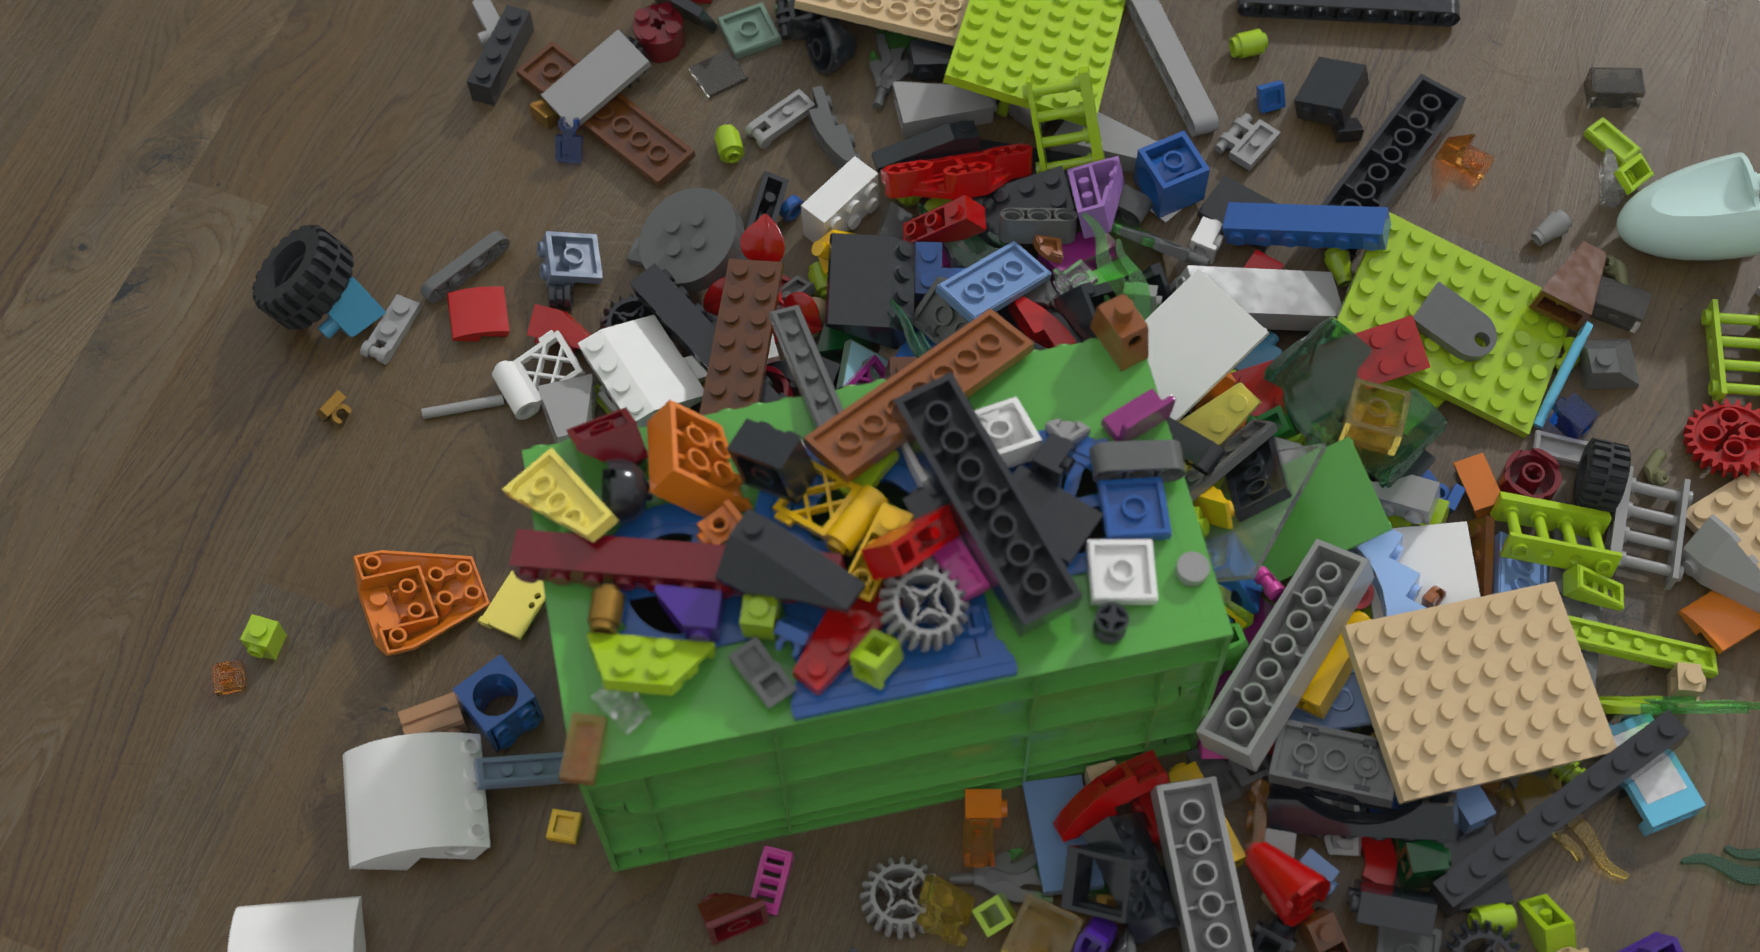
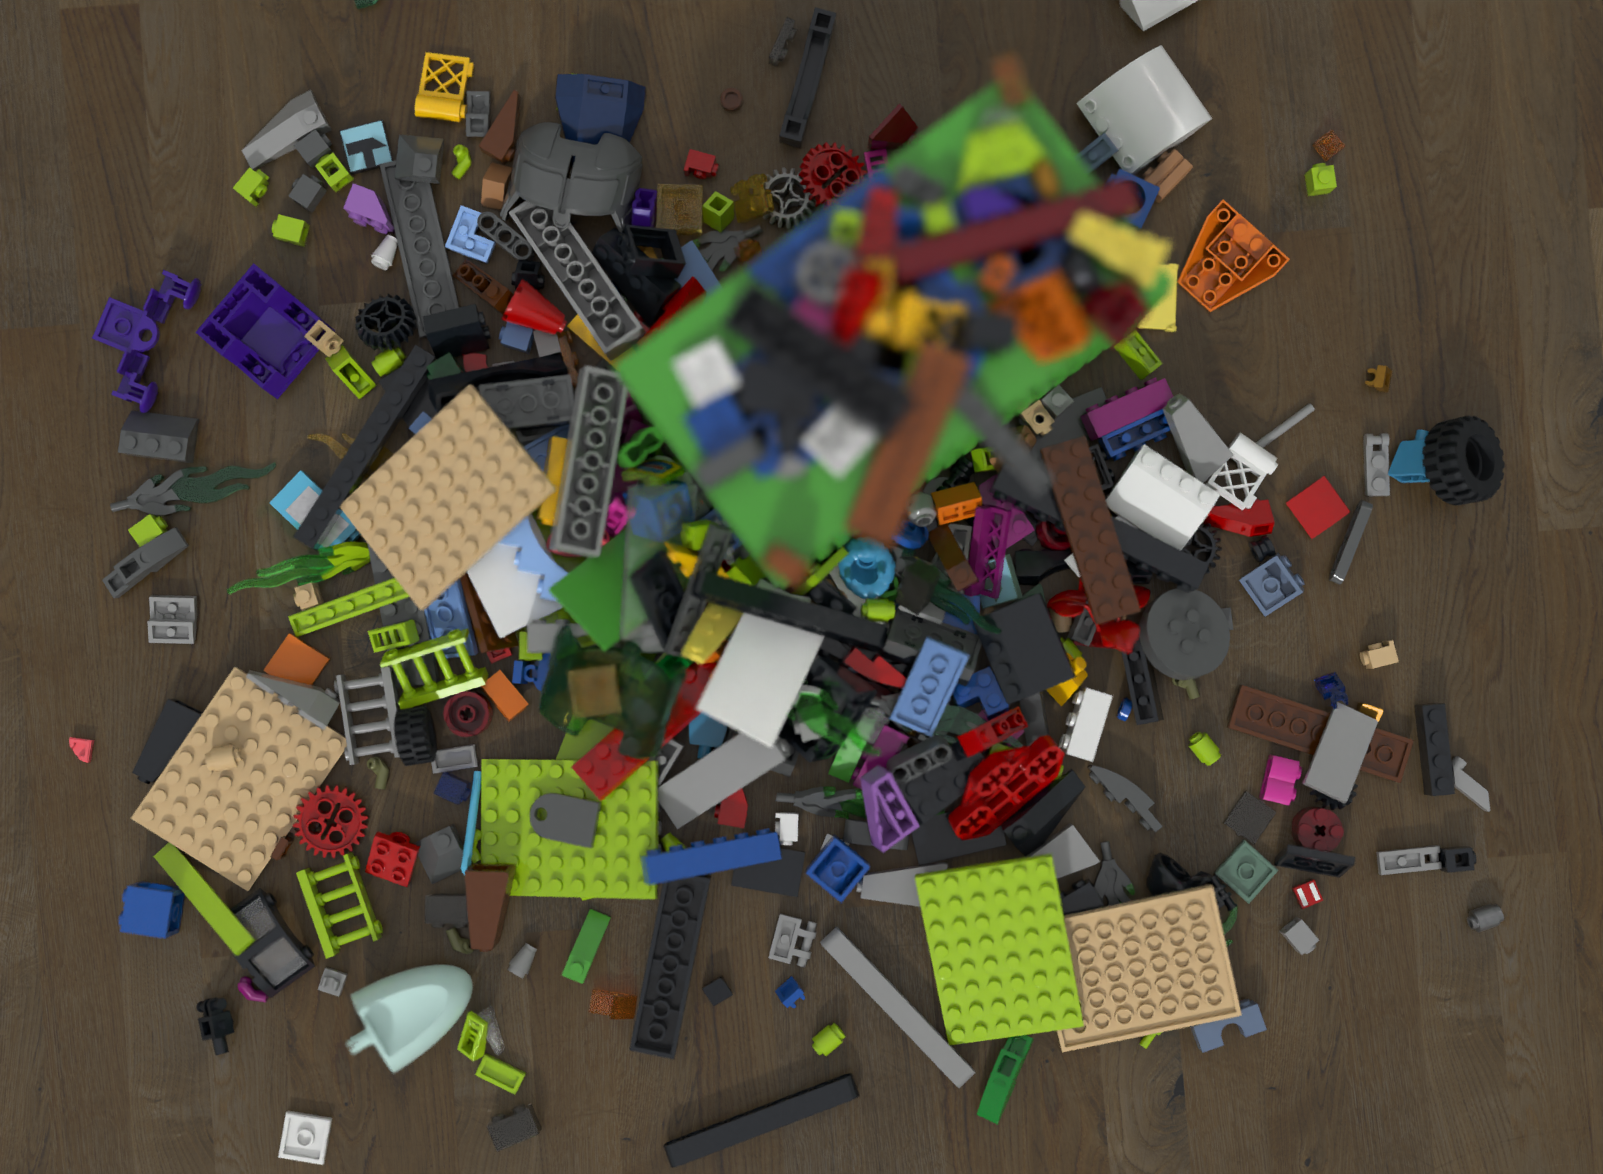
camera: 150 degrees right, 25 degrees up
(502, 154) = (1379, 655): none -> tan brick
(669, 88) = (1280, 780): none -> dark pink brick
(776, 563) = (938, 245): black wedge -> none
(780, 118) = (1176, 793): light grey plate -> none
(831, 891) = (819, 162): none -> red gear
(1049, 248) = (901, 742): dark orange tile -> none
(1087, 108) = (924, 878): lime fence -> none
(1113, 615) = (696, 323): black wheel -> none
(1138, 416) = (745, 502): magenta panel -> none
(1192, 569) = (659, 399): light grey tile -> none
(1331, 91) = (741, 1015): black brick -> none
(1433, 597) = (502, 560): dark orange tile -> none
(1477, 211) = (586, 946): none -> bright green slope
(1672, 372) = (392, 858): none -> red plate

